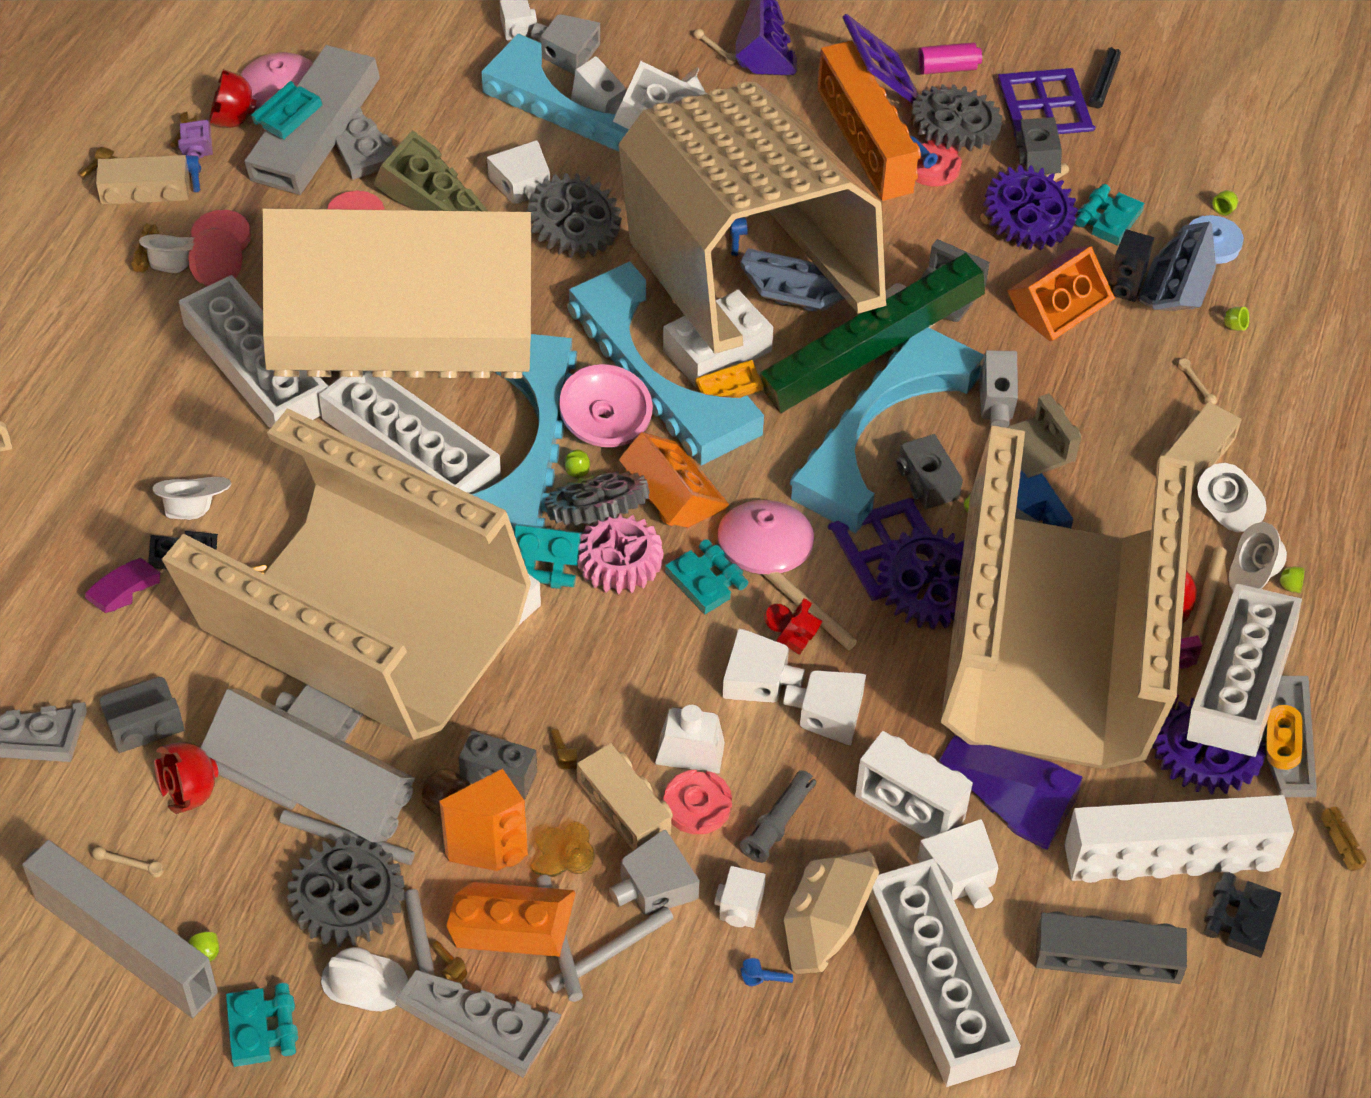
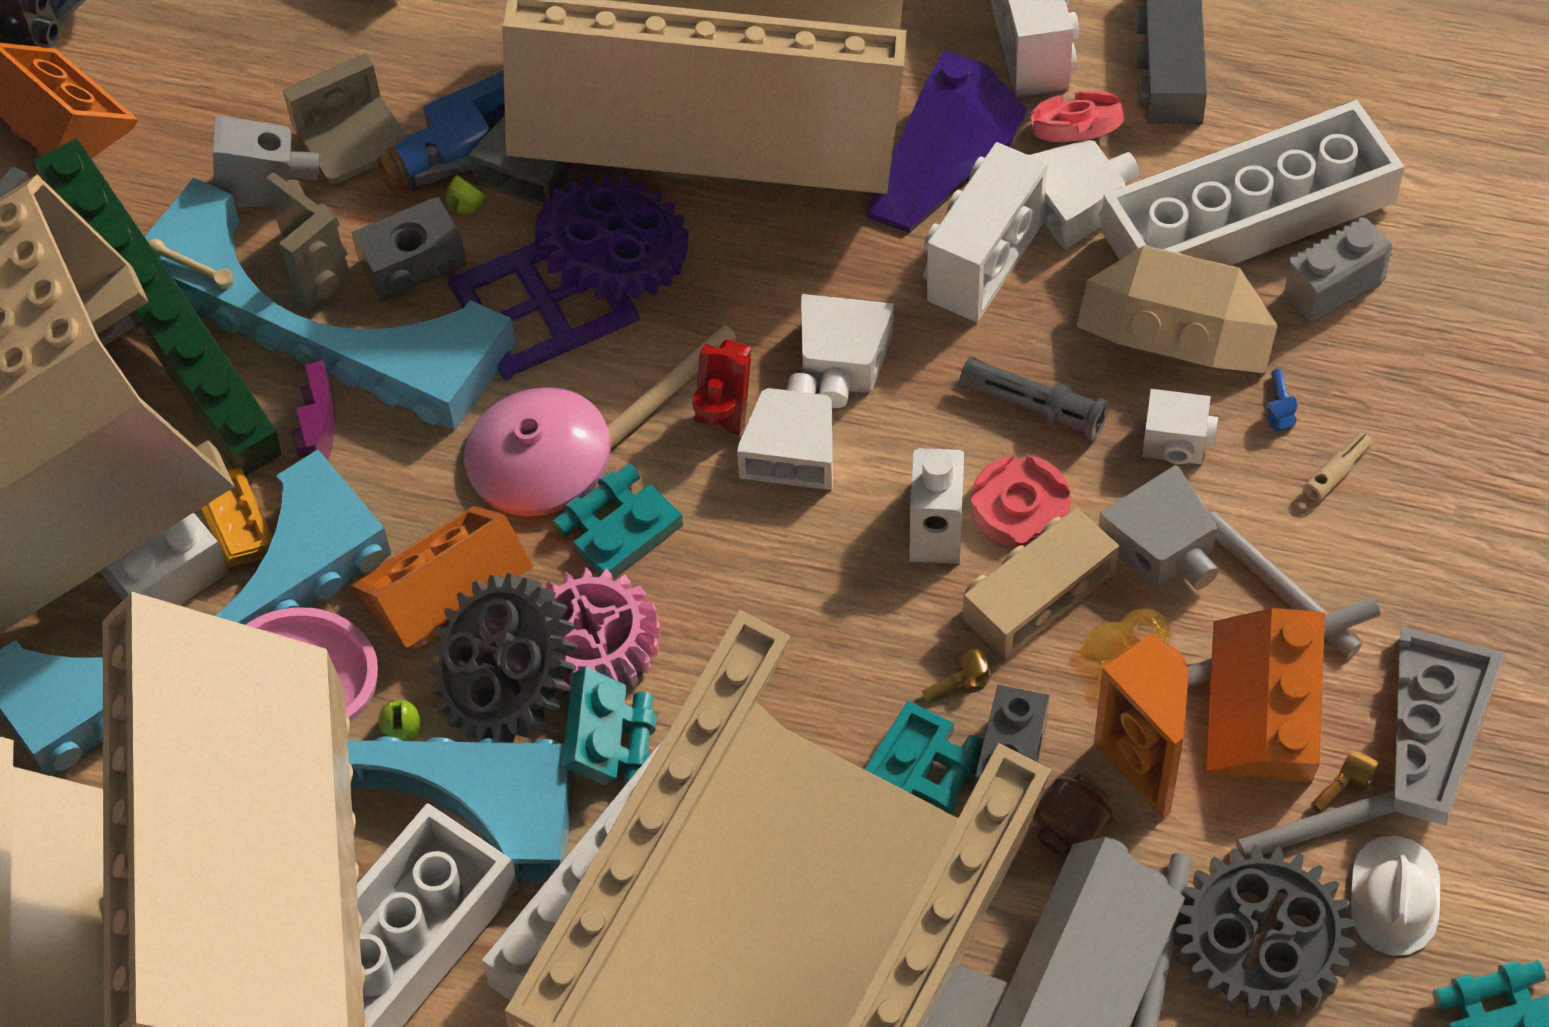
camera: 90 degrees left, 5 degrees up
(504, 710) = (913, 747): none -> teal plate
(703, 1002) = (1336, 468): none -> tan piece
(789, 424) = (317, 415): none -> magenta slope
(872, 1022) = (1337, 269): none -> light grey brick
(898, 367) = (223, 278): none -> tan hinge
(922, 416) = (311, 244): none -> dark tan bracket
(1028, 868) = (1080, 119): none -> coral tile

